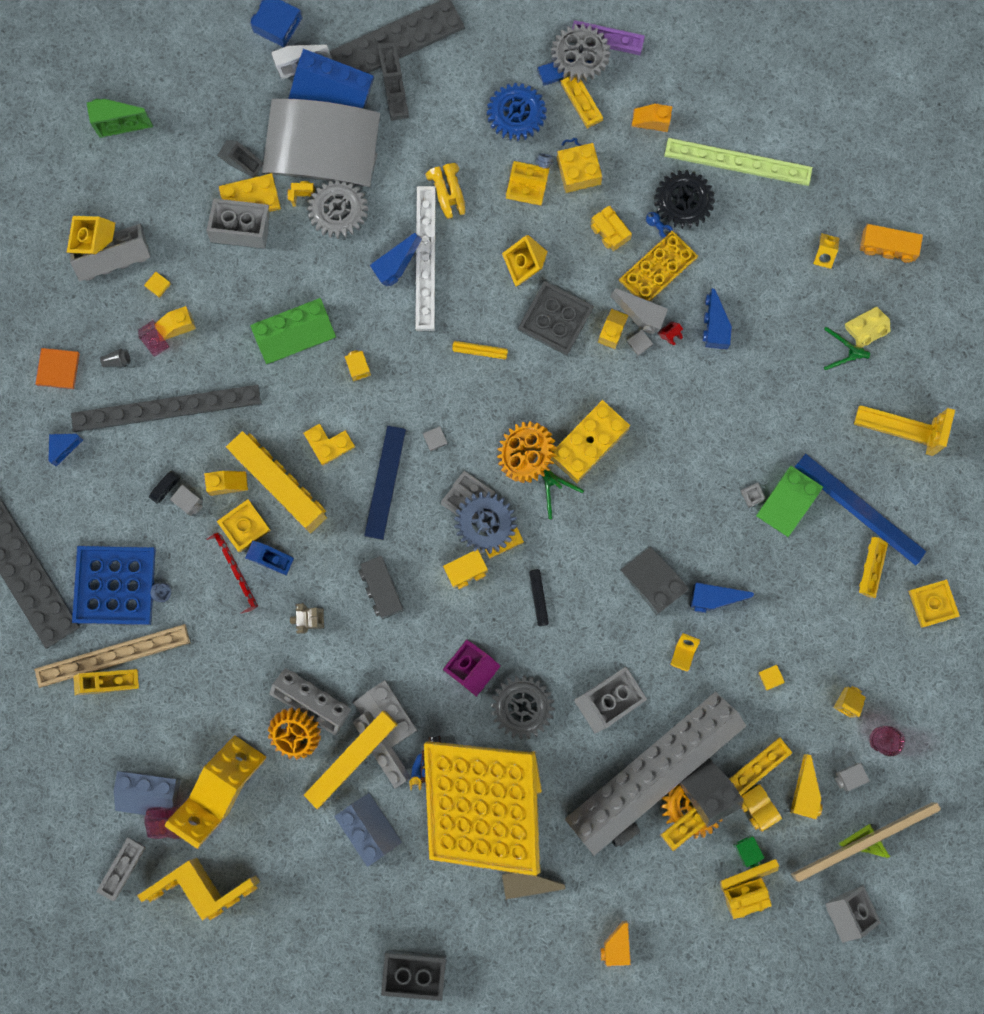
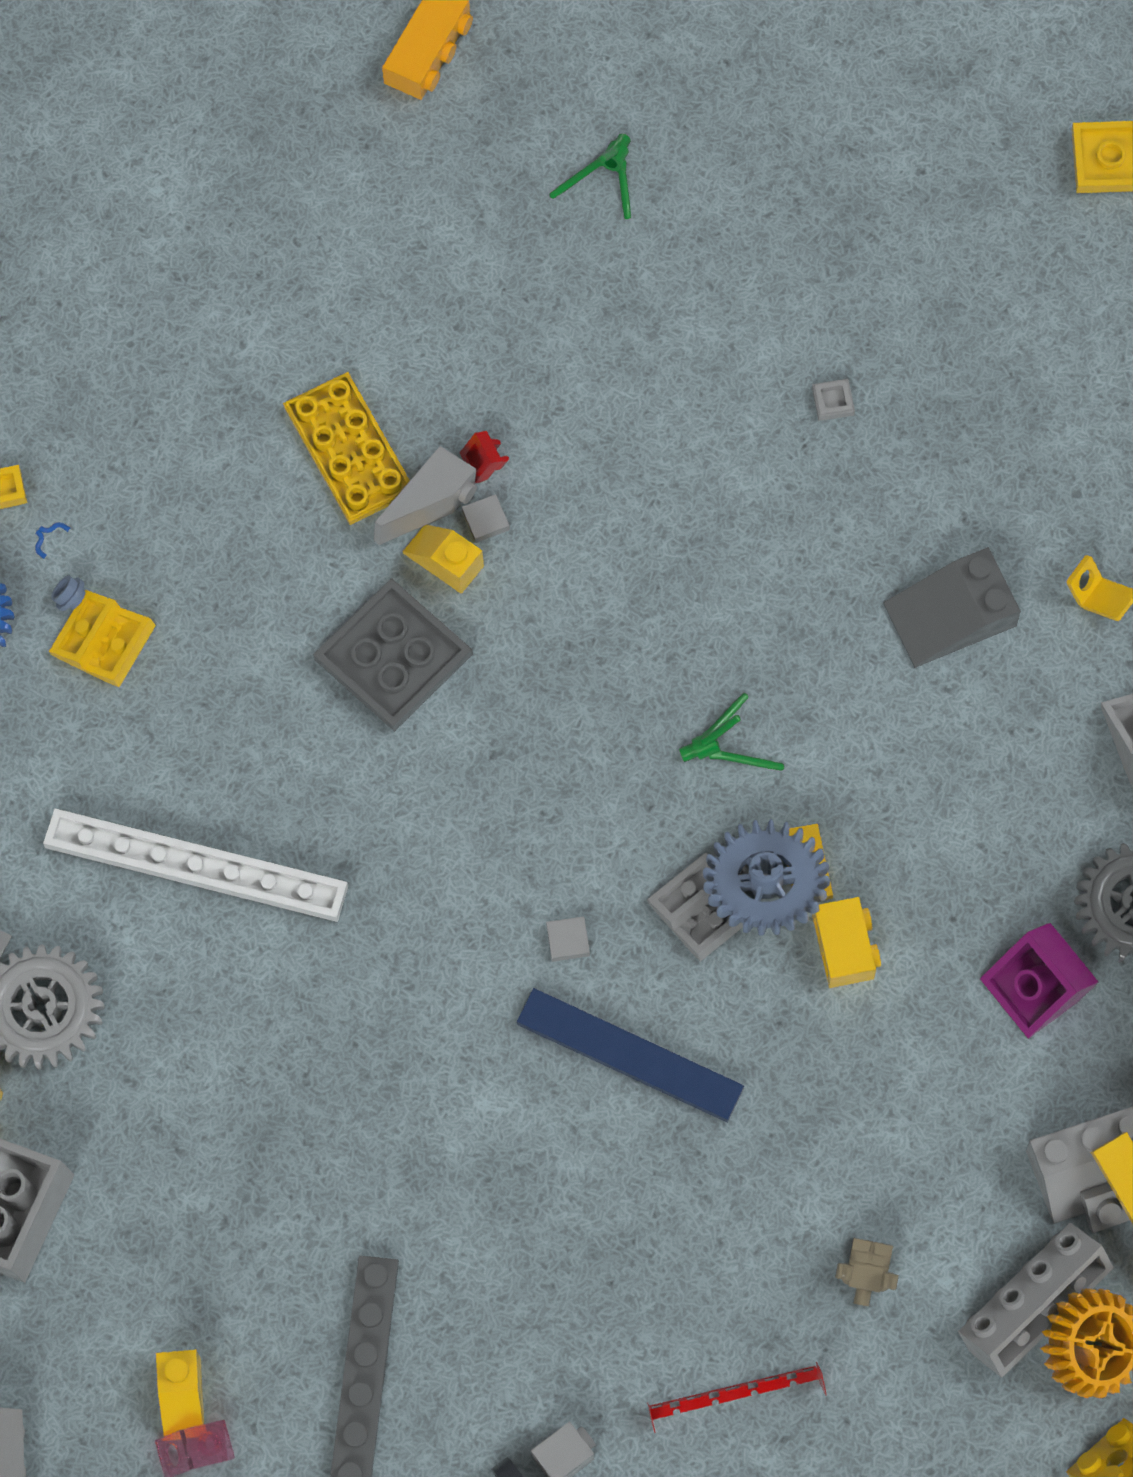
camera: 75 degrees left, 10 degrees down
(157, 284) = (81, 1414): yellow tile -> none
(225, 482) = (546, 1367): yellow slope -> none
(243, 525) = (645, 1352): yellow plate -> none
(269, 557) = (724, 1316): blue slope -> none
(273, 478) = (578, 1255): yellow brick -> none
(293, 331) = (270, 1156): bright green slope -> none
(325, 448) = (529, 1153): yellow plate -> none
(357, 365) = (377, 1047): yellow brick -> none
(380, 588) = (841, 1111): dark grey brick -> none
(394, 262) = (191, 926): blue slope -> none
(446, 200) = (84, 797): yellow piece -> none
(481, 350) = (413, 810): yellow axle -> none
(524, 259) = (261, 679): yellow slope -> none
(525, 436) = (613, 762): light orange gear -> none
(538, 597) = (932, 824): black axle -> none
(578, 456) = (671, 684): yellow brick -> none
(579, 167) = (106, 533): yellow brick -> none
(610, 228) = (246, 509): yellow brick -> none
(652, 117) = (48, 377): light orange slope -> none
(655, 221) = (254, 428): blue arm -> none
(684, 213) = (231, 386): black gear -> none
(712, 597) = (1011, 513): blue slope -> none
(718, 325) = (492, 371): blue slope -> none
(738, 161) = (183, 257): yellowish green tile -> none
(789, 501) = (862, 339): bright green slope -> none
(827, 245) = (401, 145): yellow bracket -> none
(861, 510) = (907, 228): blue tile -> none
(868, 327) = (572, 122): light yellow bracket -> none
(873, 567) = (1020, 235): yellow plate -> none
(932, 435) = (810, 64): yellow bracket -> none

